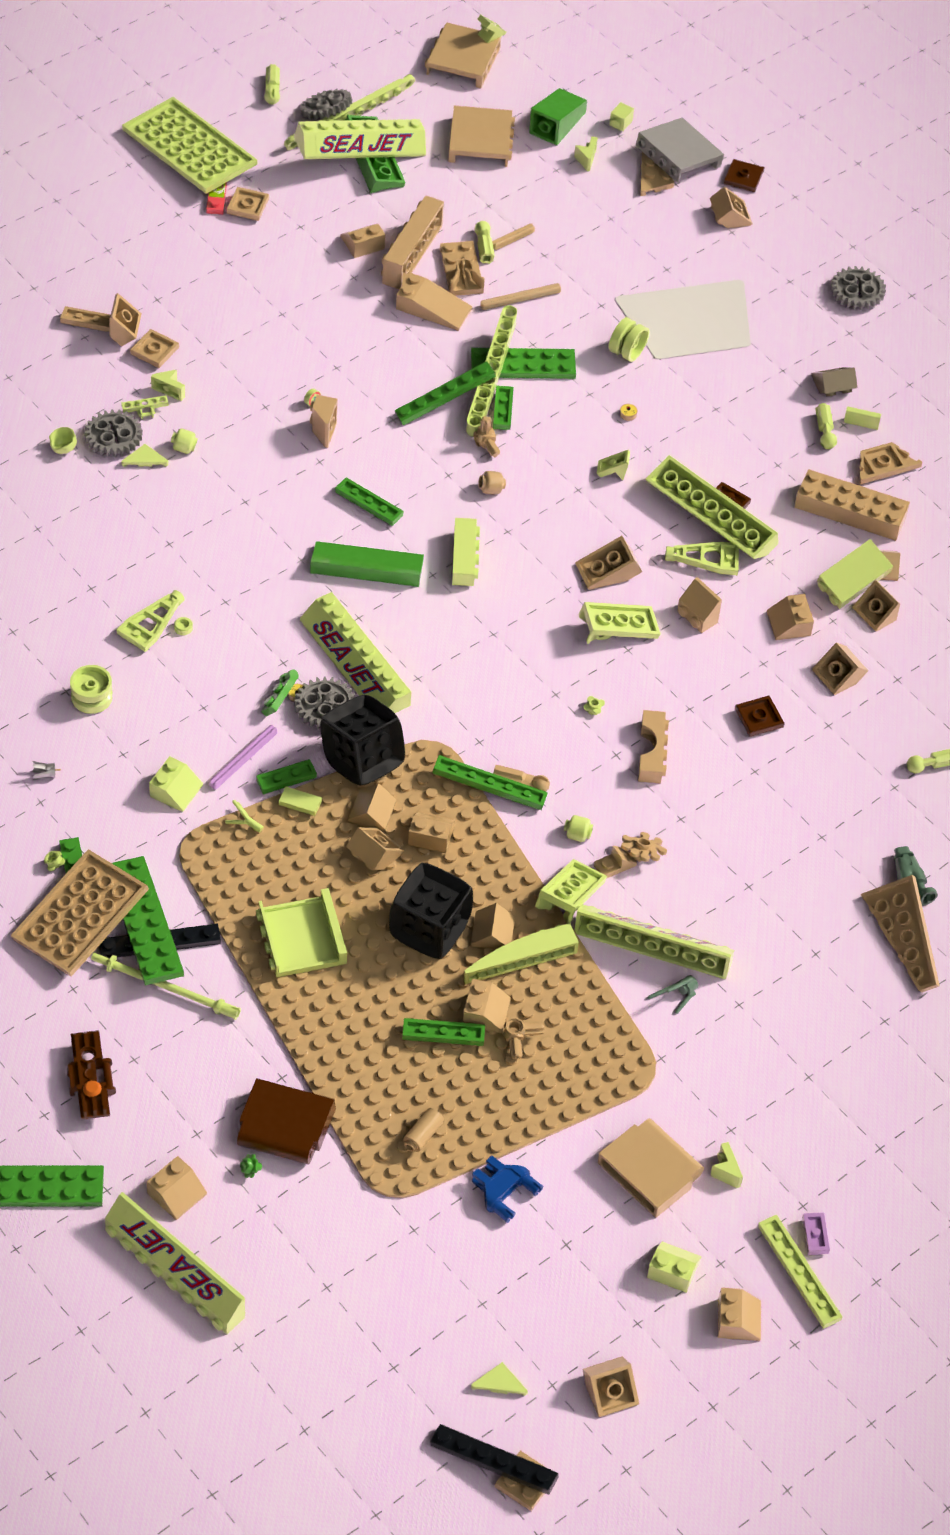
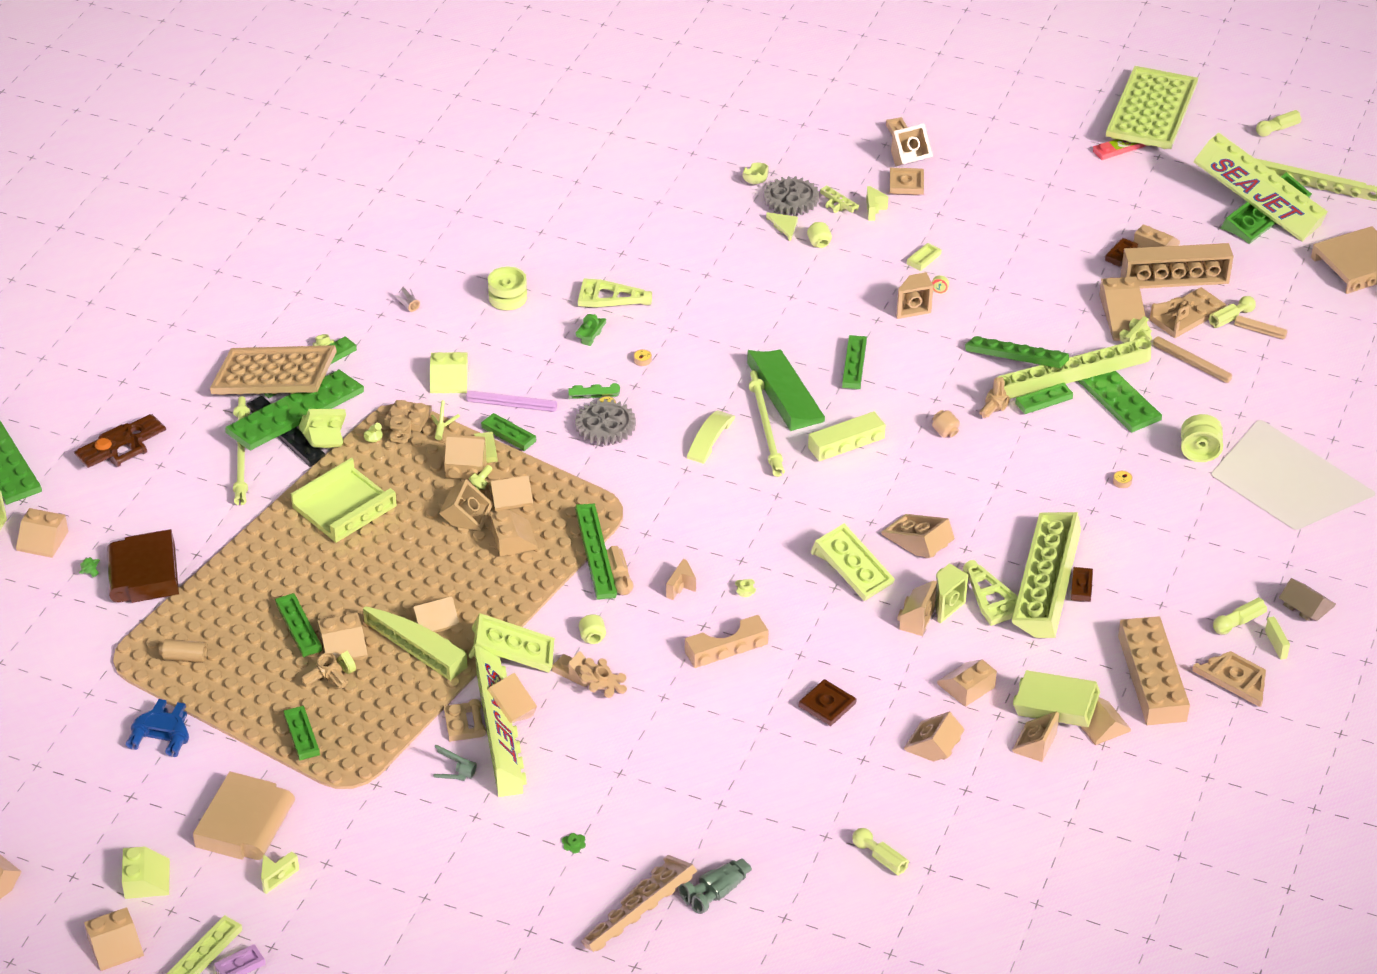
camera: 65 degrees right, 10 degrees down
(183, 626) = (623, 315): yellowish green tile -> none
(193, 655) = (590, 328): none -> bright green hips
(196, 908) = (323, 427): none -> yellowish green piece
(224, 873) = (374, 433): none -> yellowish green plate
(229, 846) = (406, 417): none -> tan plate
(248, 203) = (1124, 165): tan plate -> none
(252, 639) = (642, 357): none -> tile
(263, 389) = (924, 256): none -> yellowish green tile
(317, 819) = (464, 456): none -> tan slope
(326, 104) = (1285, 156): light grey gear -> none
(346, 824) = (479, 480): none -> yellowish green plate
(354, 653) = (673, 422): yellowish green slope -> none
(359, 266) = (1115, 255): none -> reddish brown plate
(362, 739) = (564, 445): black piece -> none
(392, 639) = (708, 434): none -> yellowish green slope
(431, 910) = (408, 556): black piece -> none
(453, 611) = (775, 459): none -> yellowish green bar
(474, 310) = (1139, 330): none -> yellowish green hips
(517, 1012) = (346, 662): none -> yellowish green tile
(559, 740) = (681, 578): none -> tan slope
(581, 1082) = (301, 733): none -> bright green plate
(615, 463) = (1043, 492): yellowish green slope -> none
(625, 969) = (457, 721): none -> tan plate
(644, 912) = (513, 699): none -> tan slope
(692, 568) = (950, 591): none -> yellowish green slope
(807, 950) = (574, 843): none -> bright green plant

